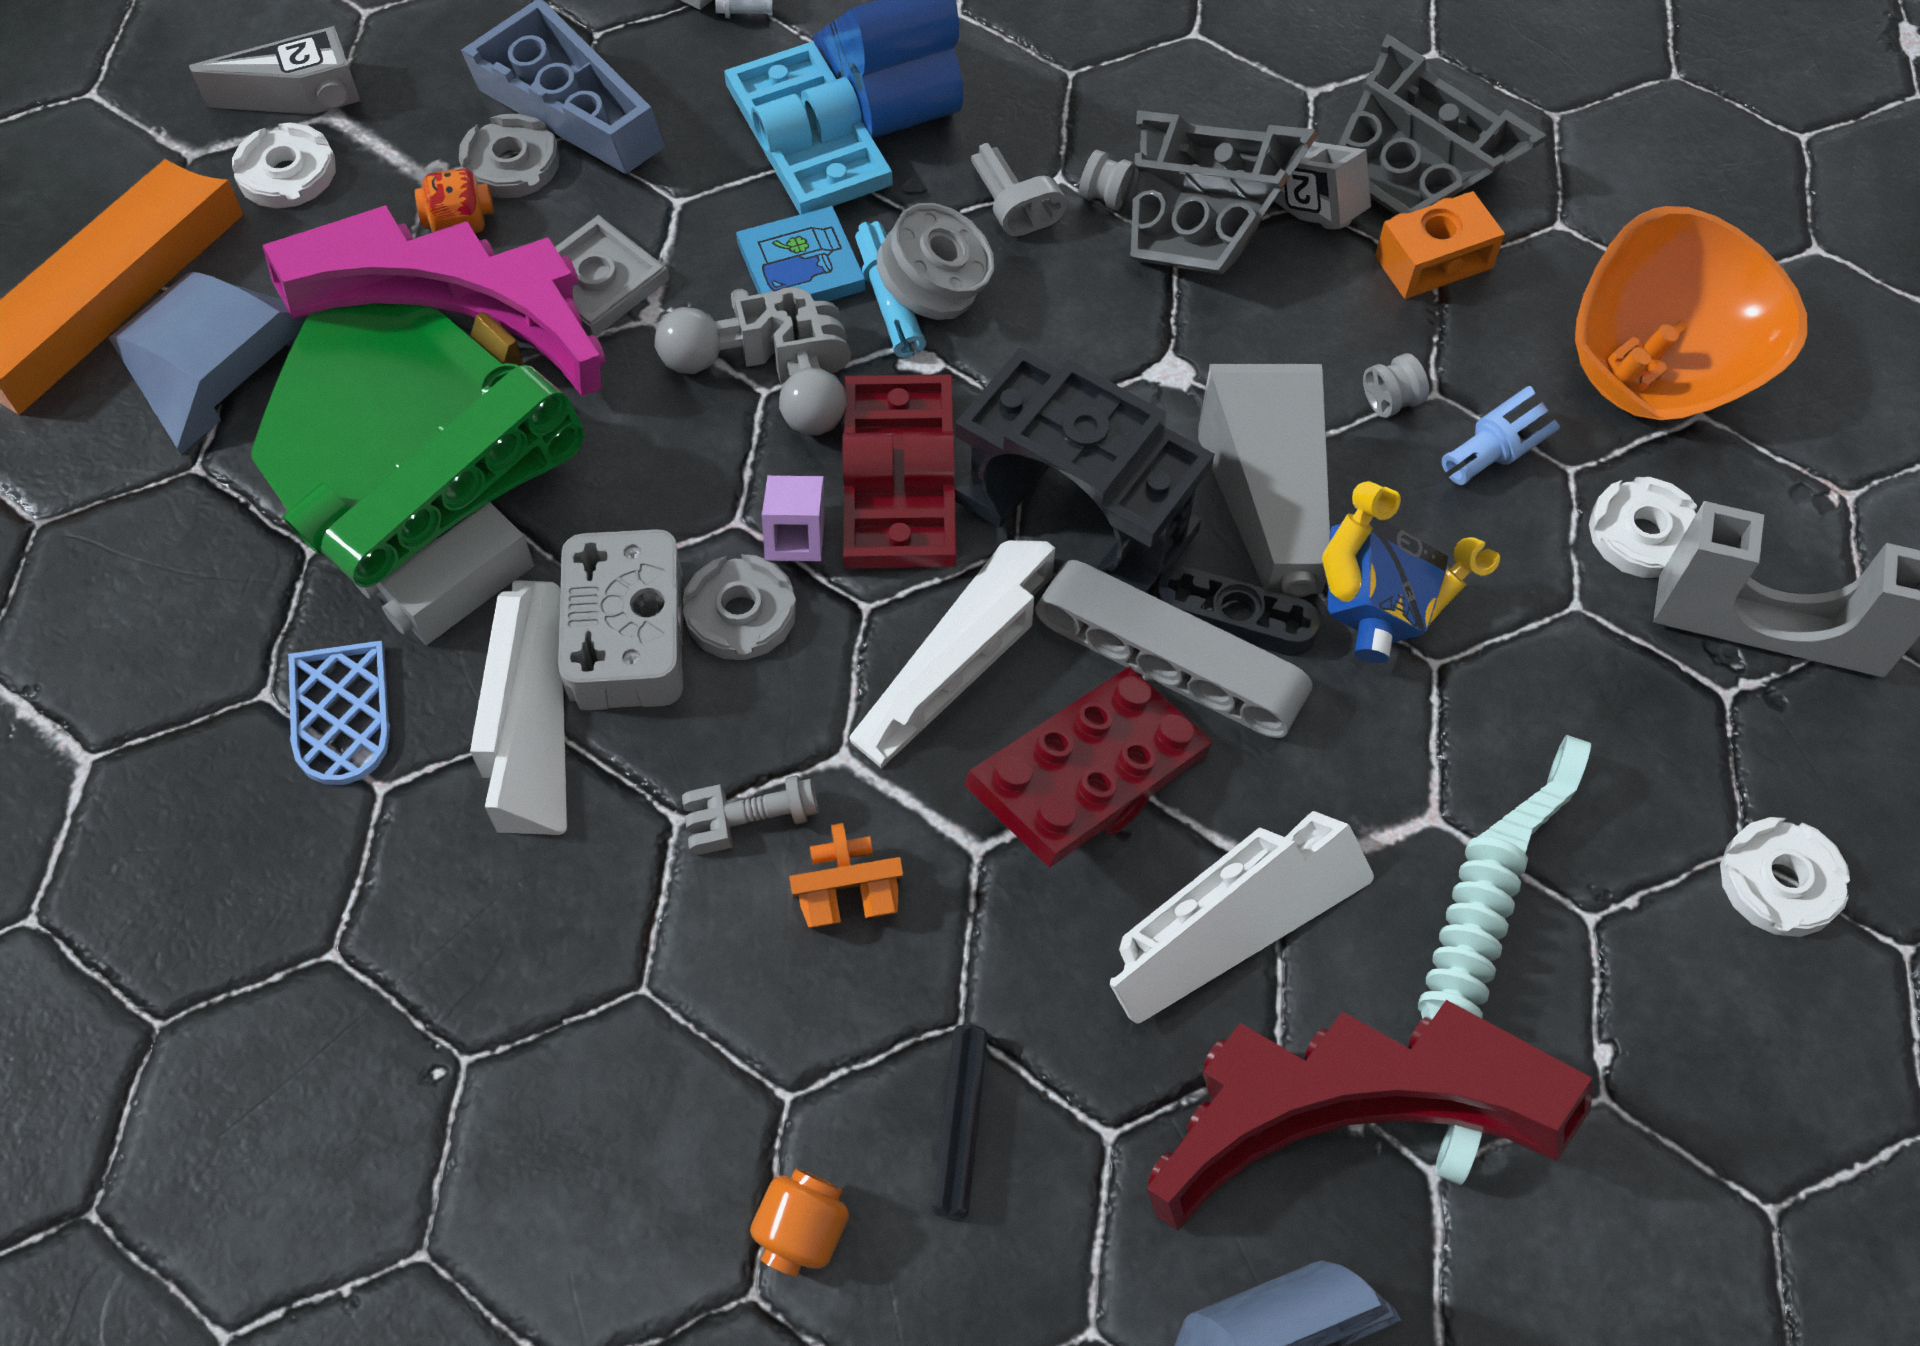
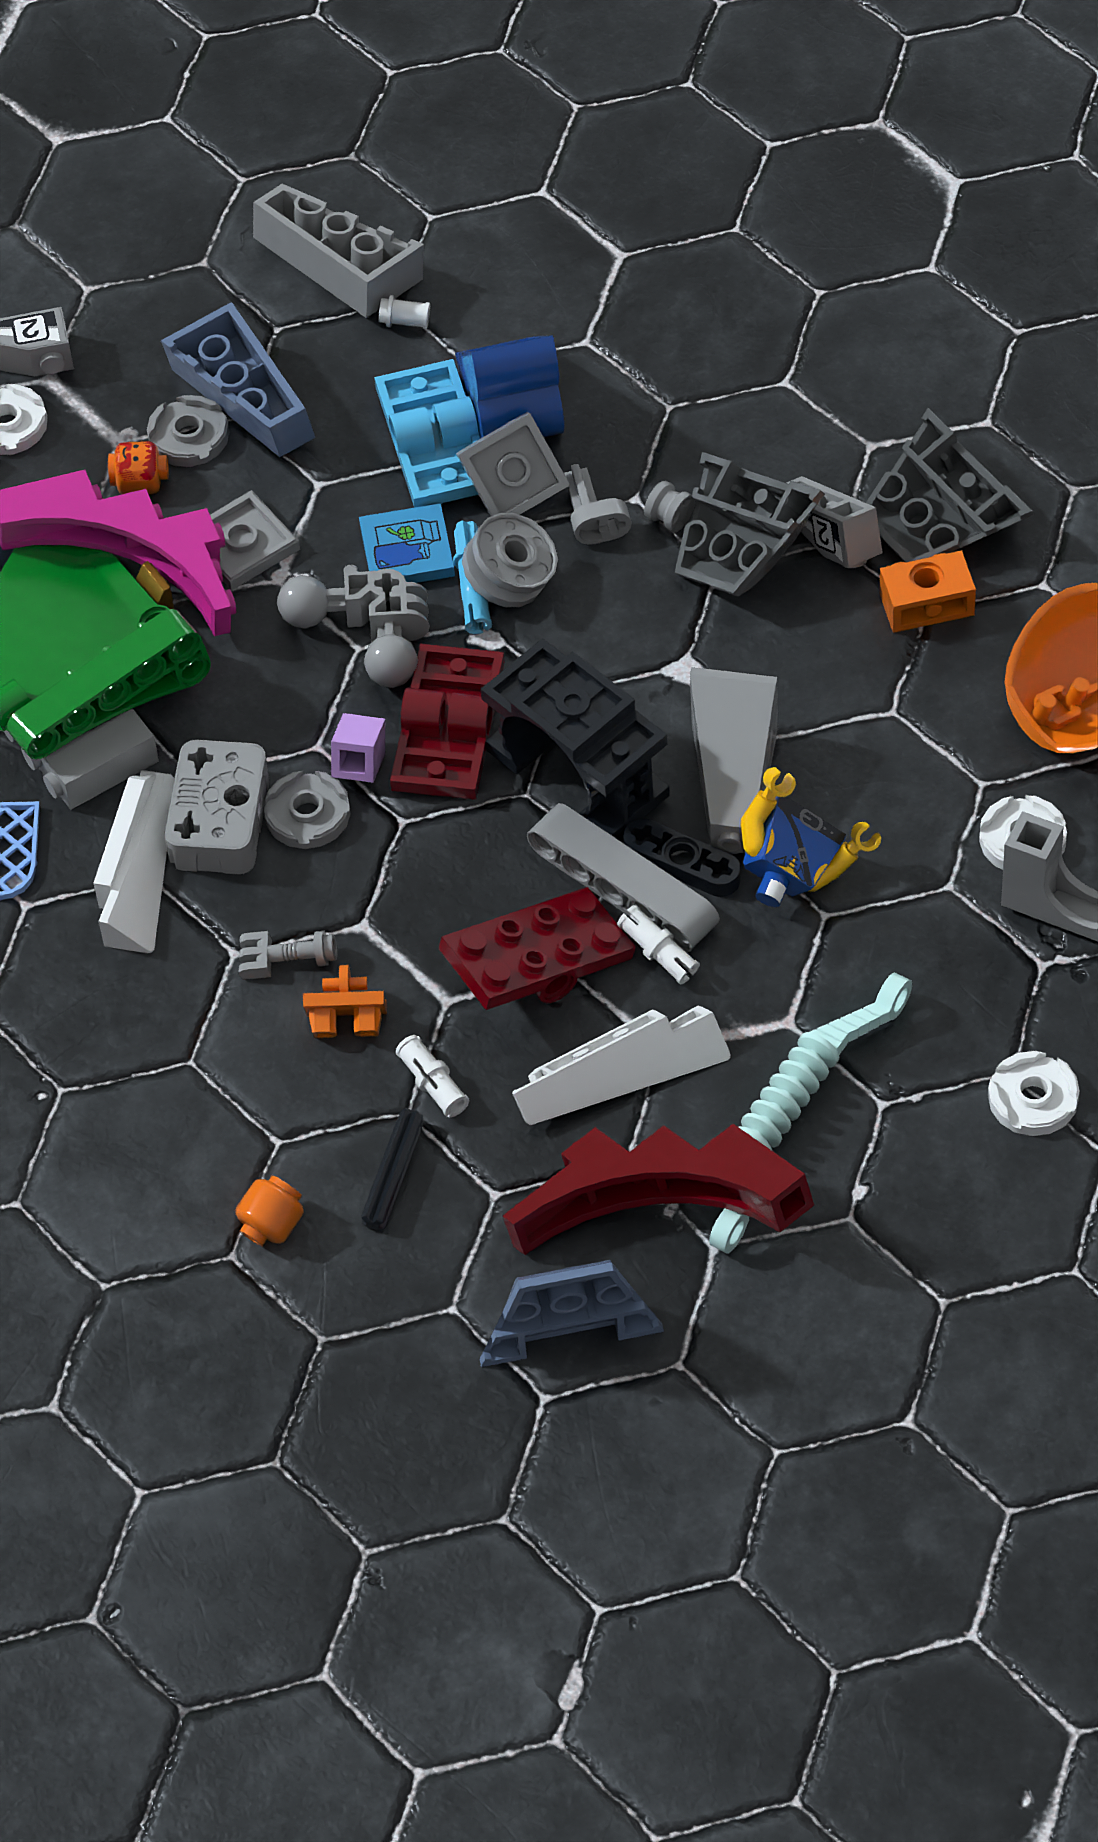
camera: 15 degrees right, 5 degrees down
(915, 151) = (513, 467): none -> light grey tile
(960, 648) = (469, 858): white wedge -> none
(986, 967) = (432, 1076): none -> white pin
(1243, 734) = (658, 944): none -> white pin
(1396, 385) = (854, 701): light grey wheel -> none
(1498, 439) = (921, 752): light blue arm -> none

